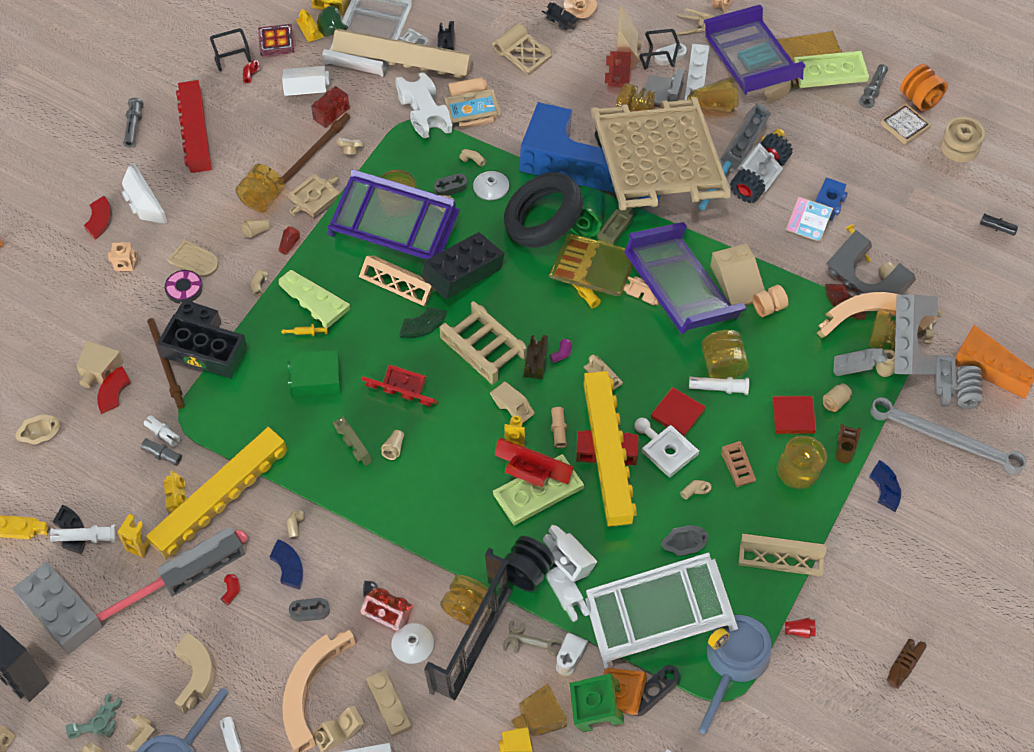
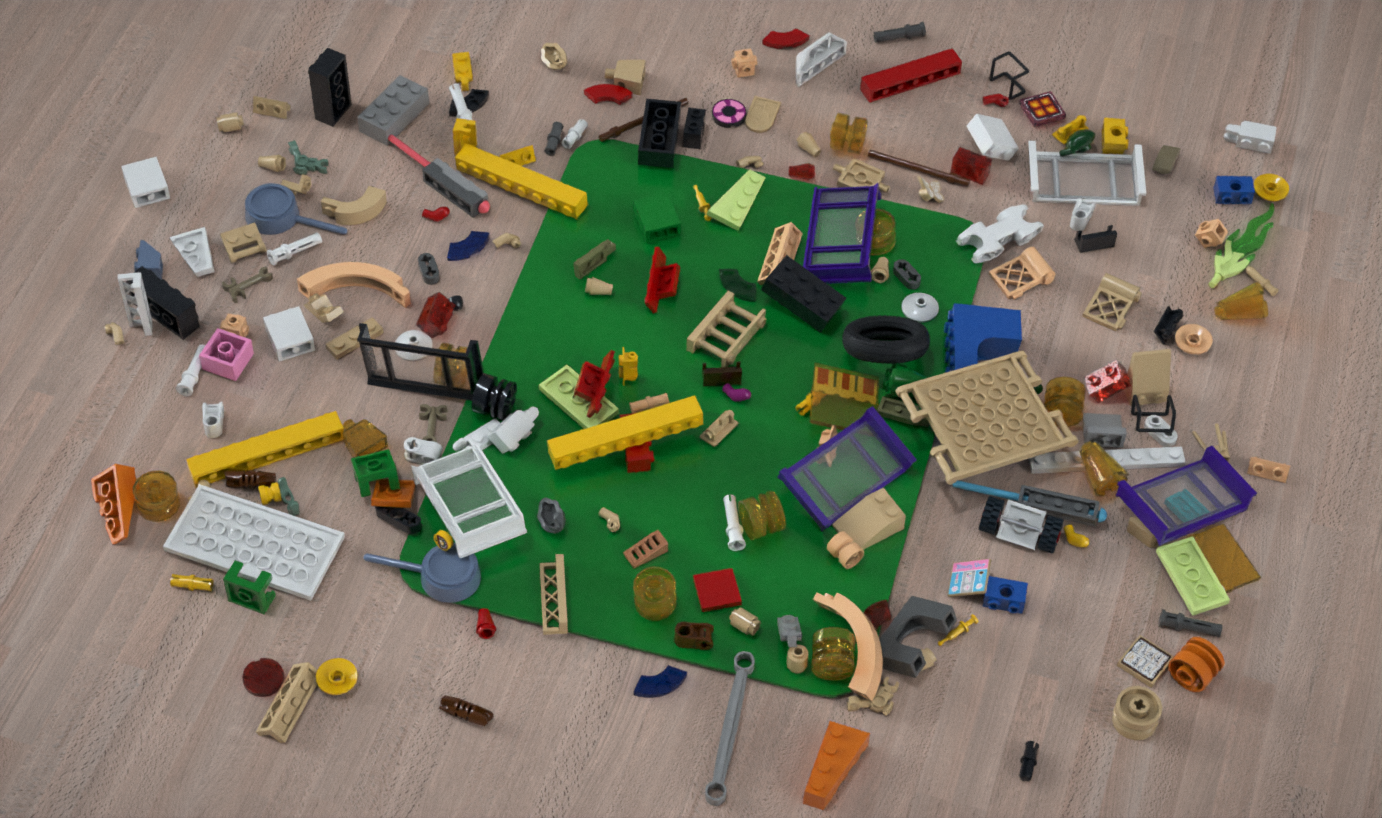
camera: 75 degrees right, 5 degrees down
(402, 52) = (1058, 202): tan brick -> none
(472, 108) = (1011, 270): door -> none
(475, 156) = (949, 280): tan arm -> none
(510, 398) = (664, 361): tan slope -> none
(659, 443) = (645, 481): white plate -> none
(678, 411) = (693, 495): red tile -> none
(909, 312) = (842, 646): light grey arch -> none
(945, 378) = (802, 722): light grey hinge -> none
(969, 386) = (796, 741): light grey piece -> none

